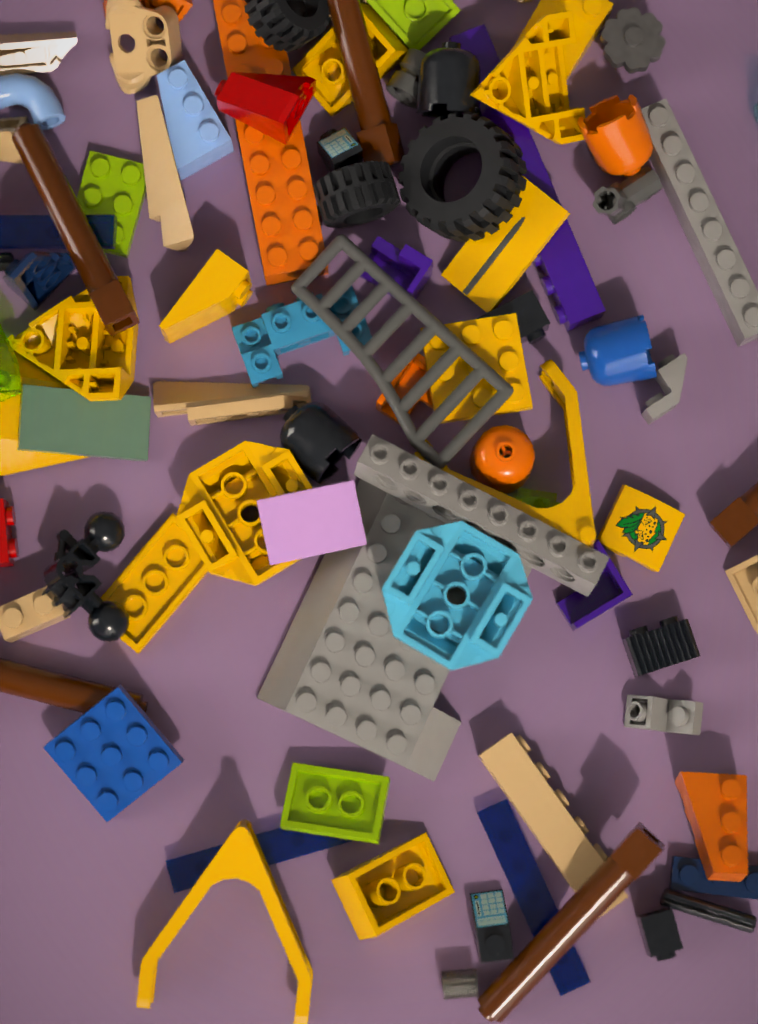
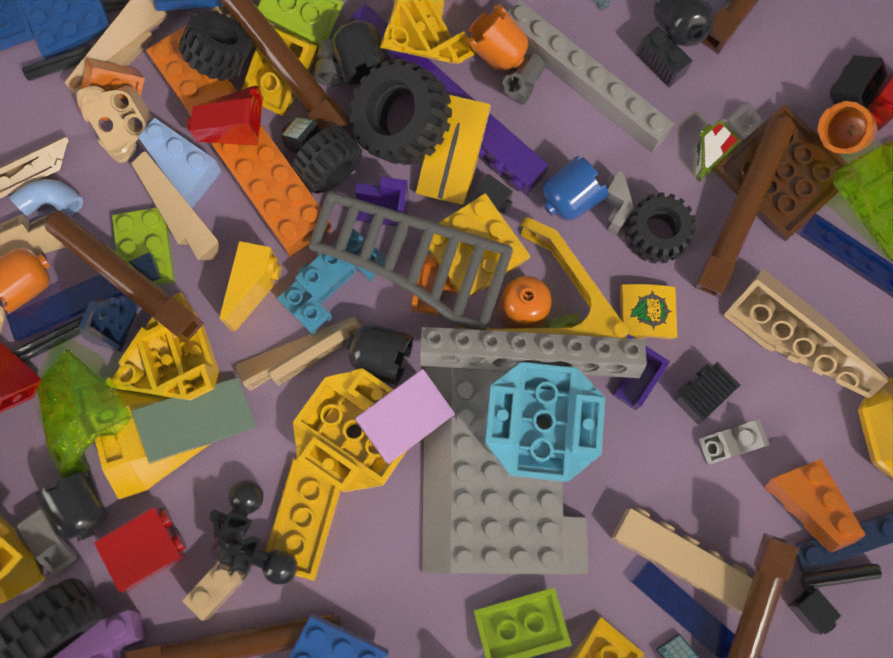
camera: 25 degrees left, 5 degrees down
(711, 416) = (670, 211): none -> black tyre

